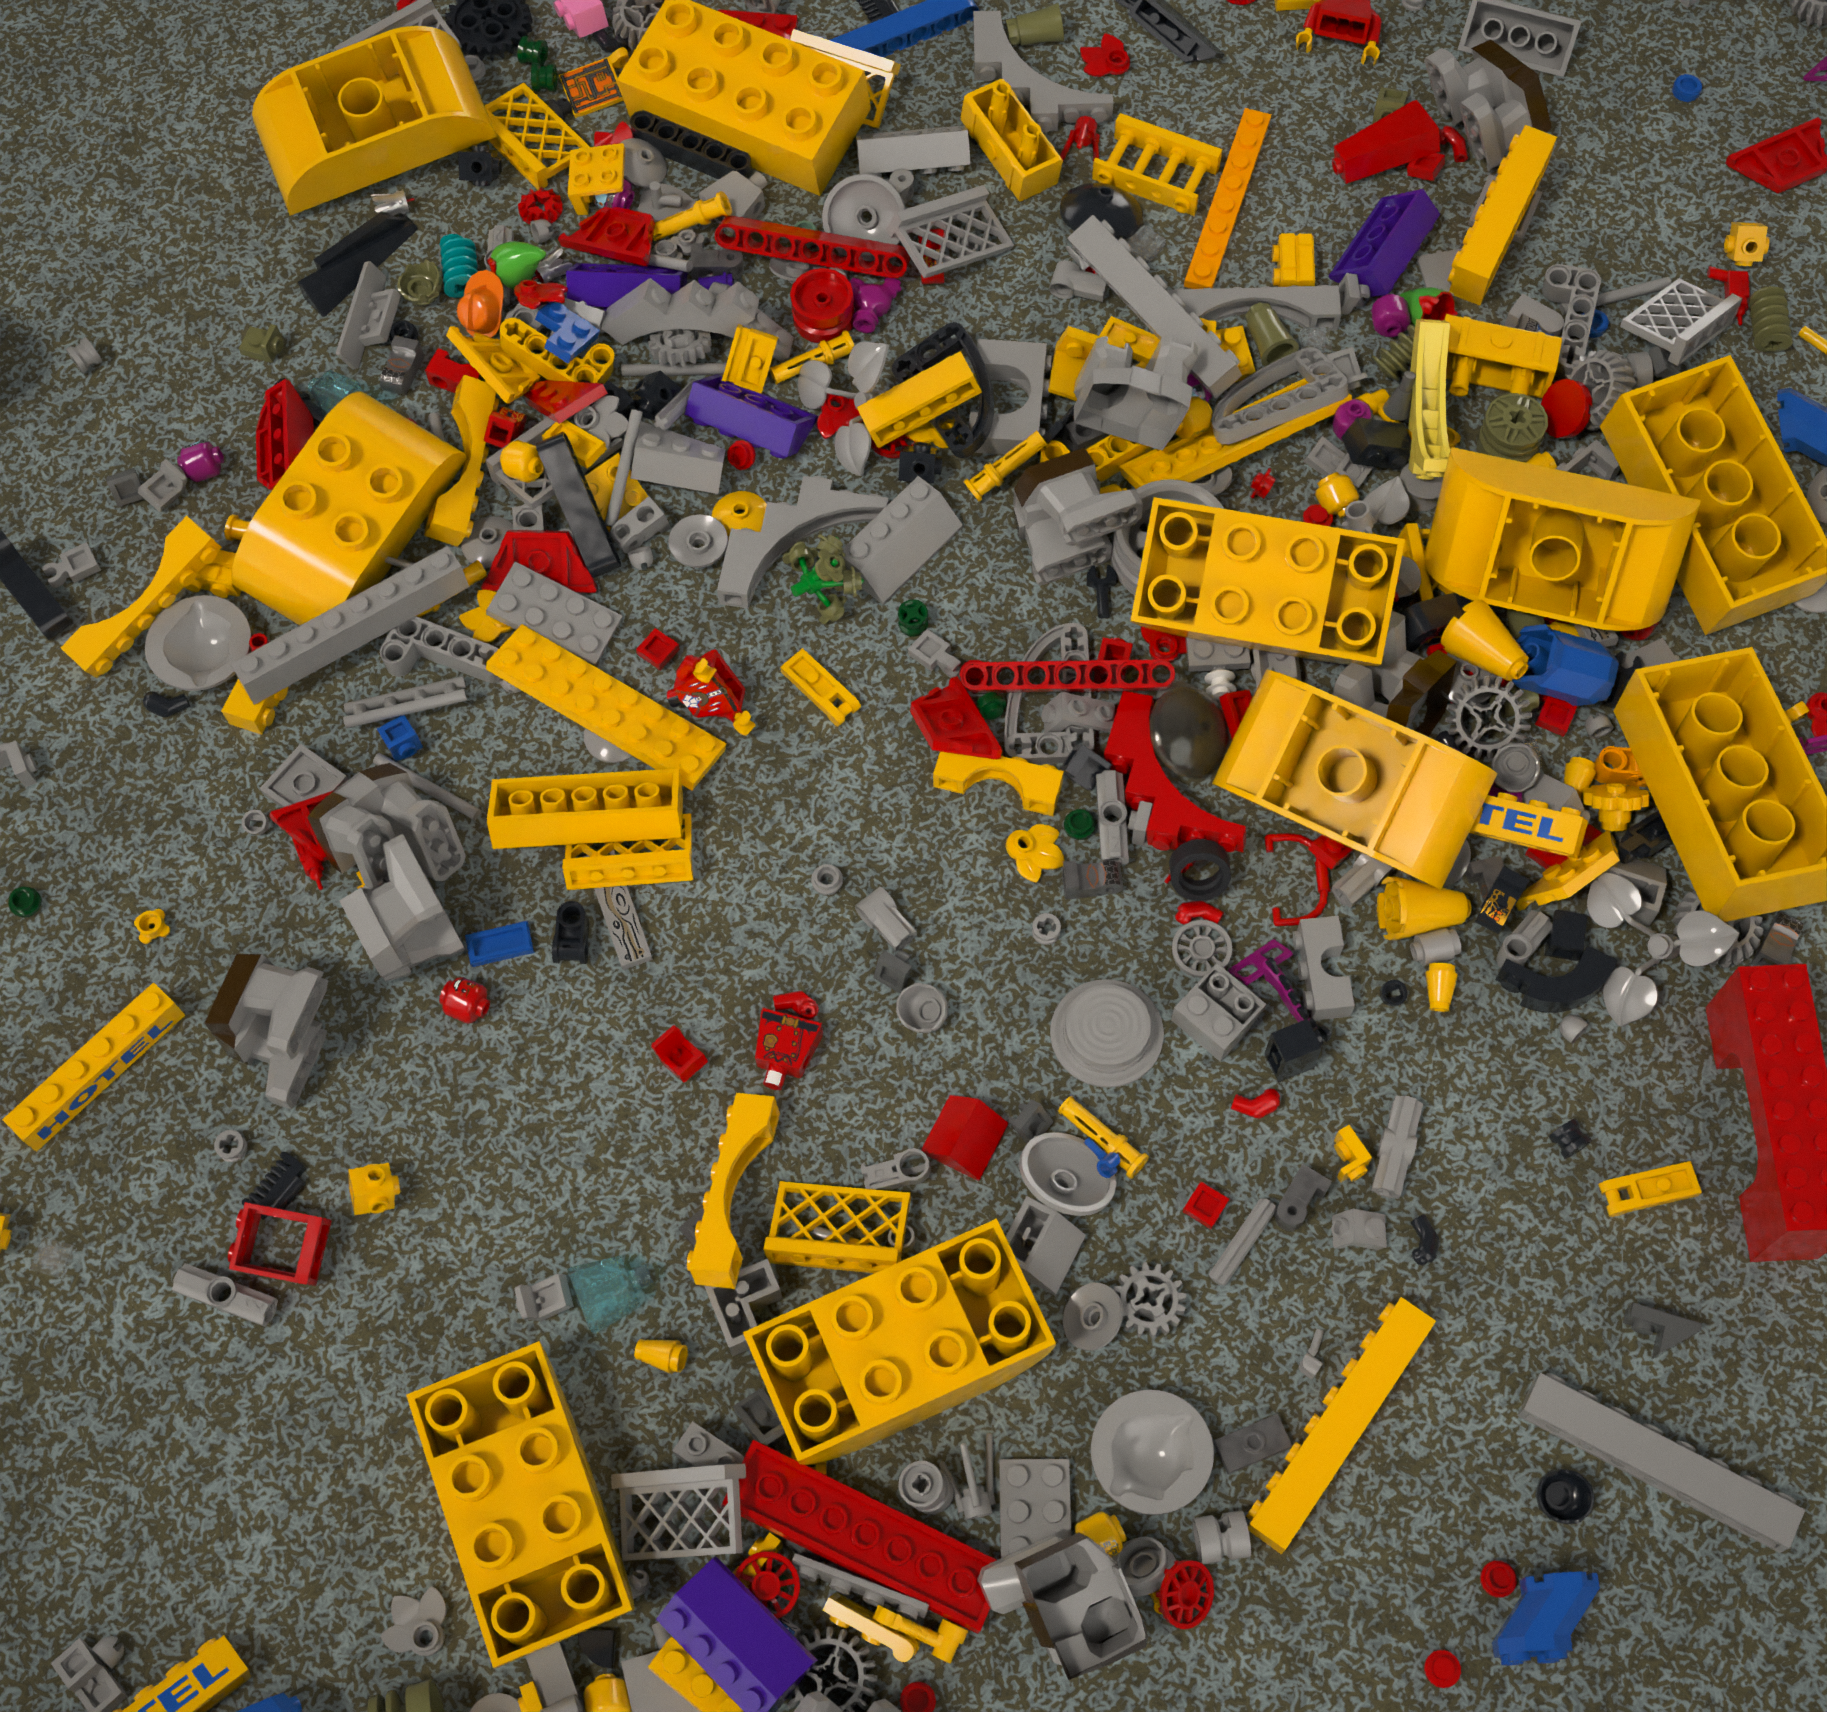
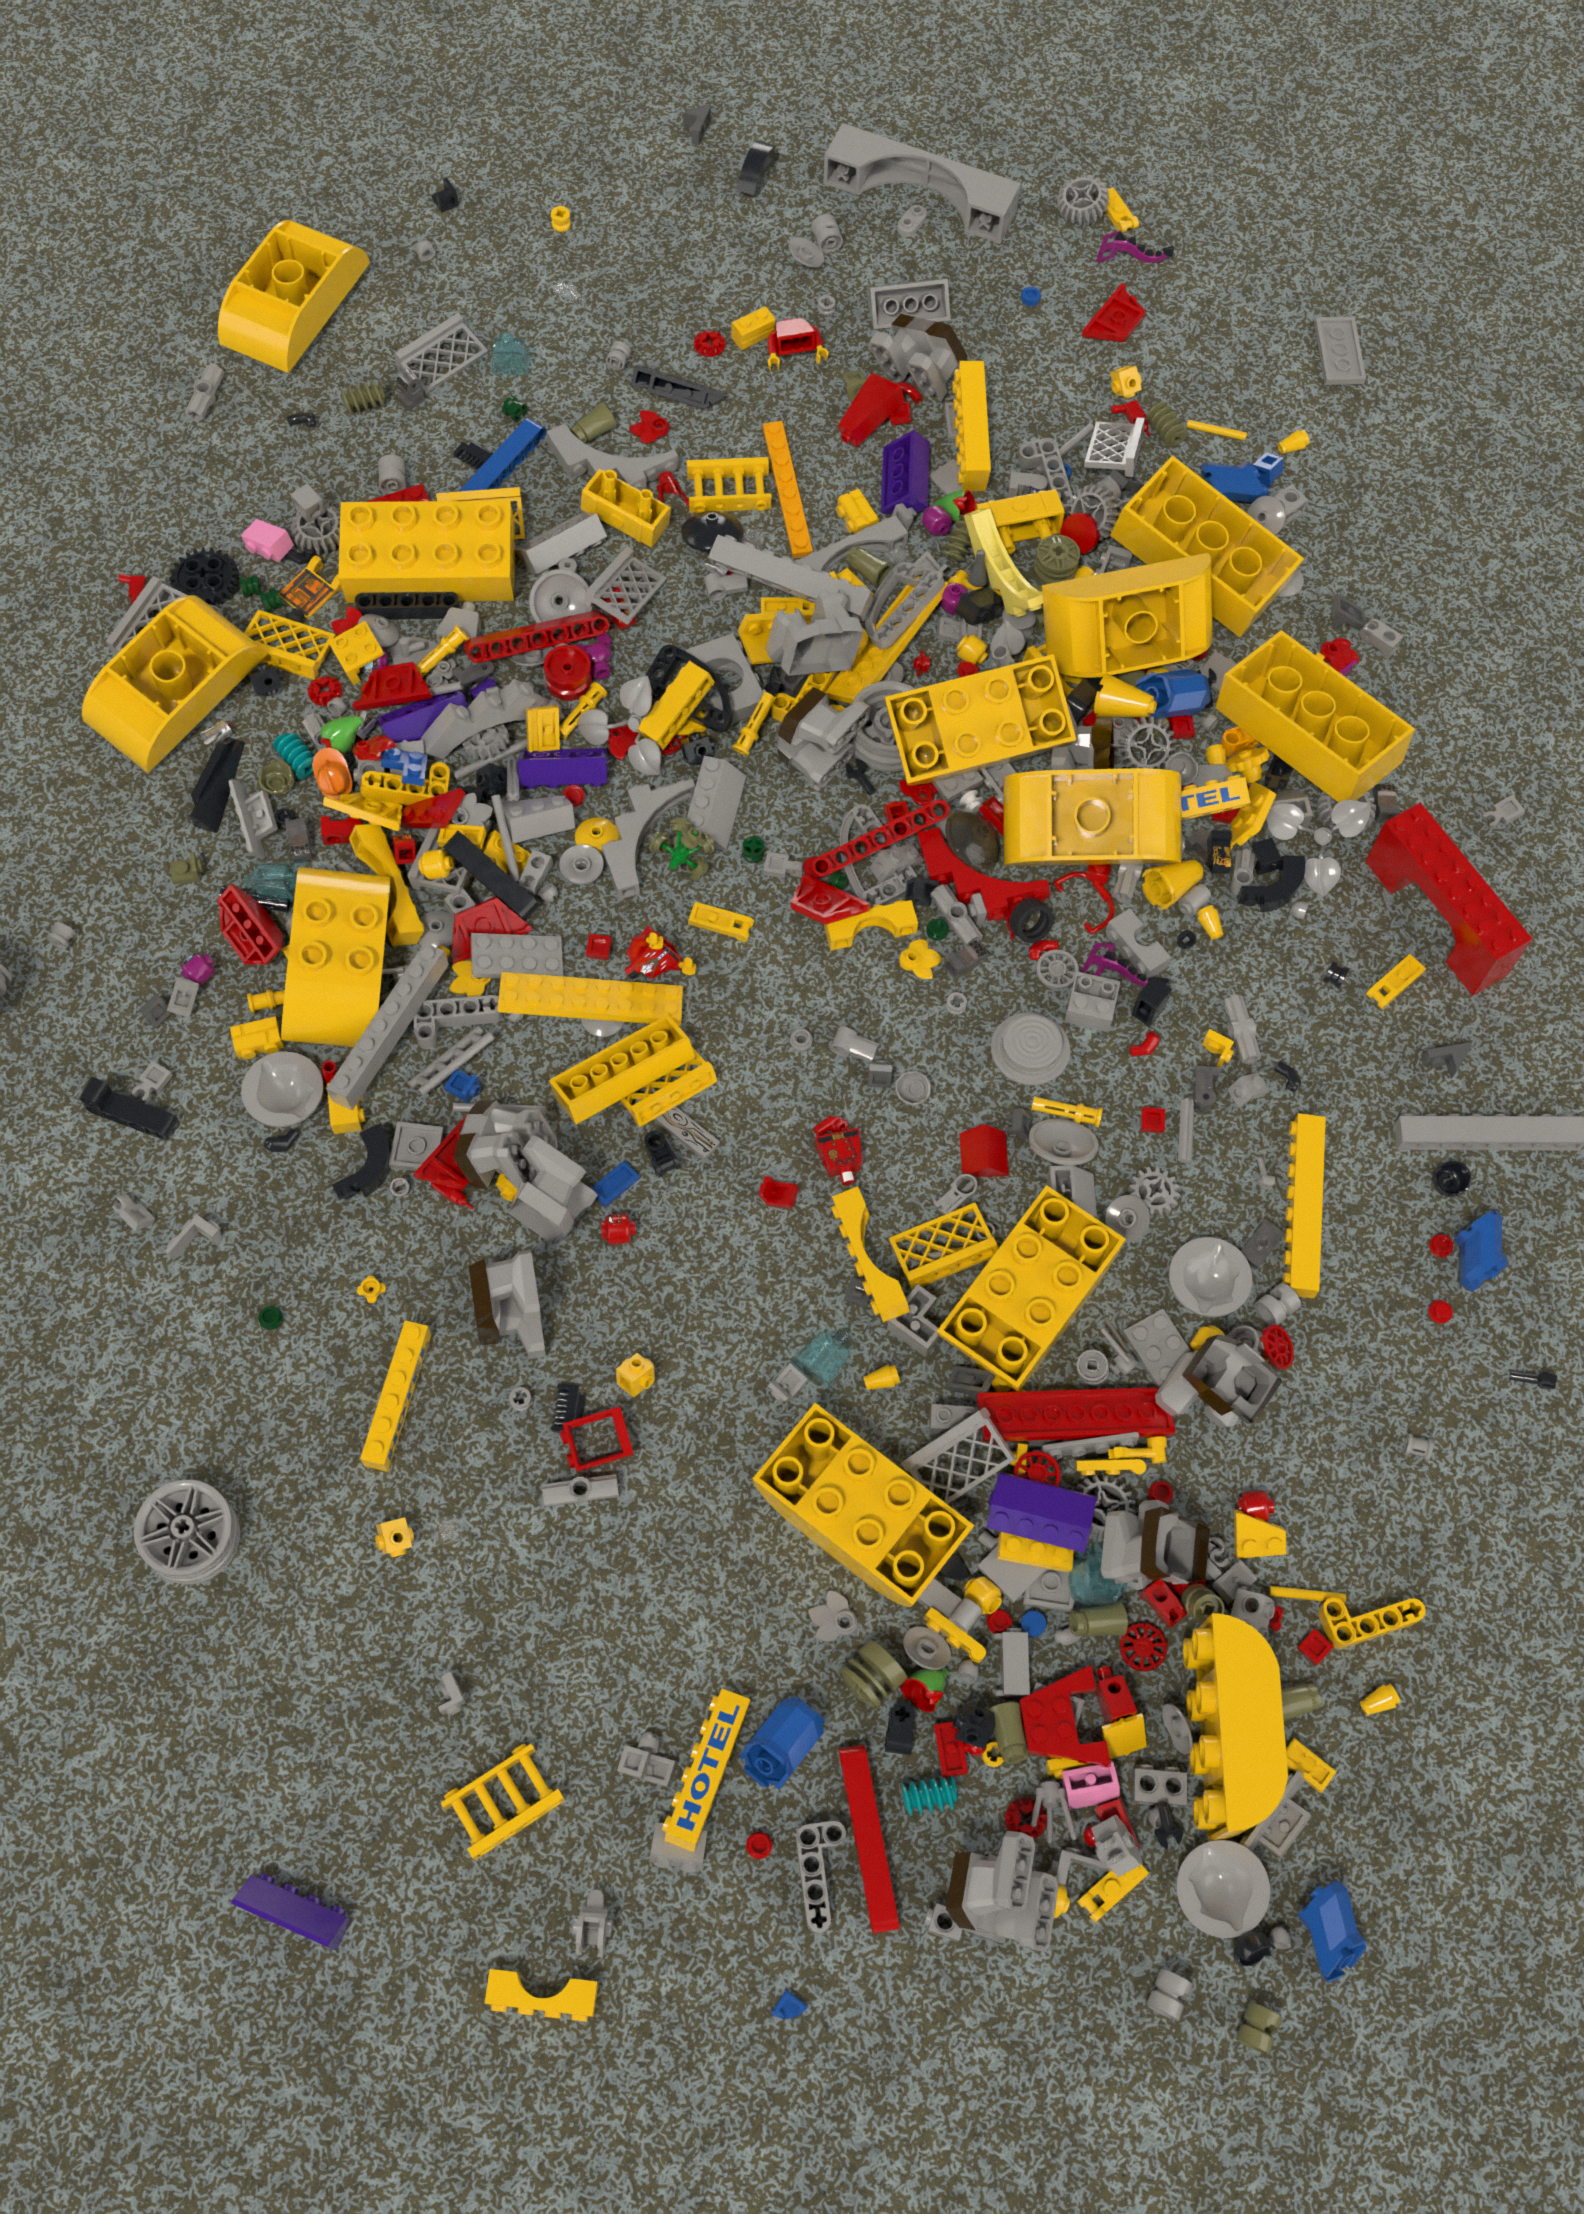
camera: 35 degrees left, 0 degrees up
(184, 555) = (210, 1123): yellow arch -> none
(240, 788) = (374, 1170): none -> black arch
(1107, 1162) = (1082, 1123): blue hand -> none

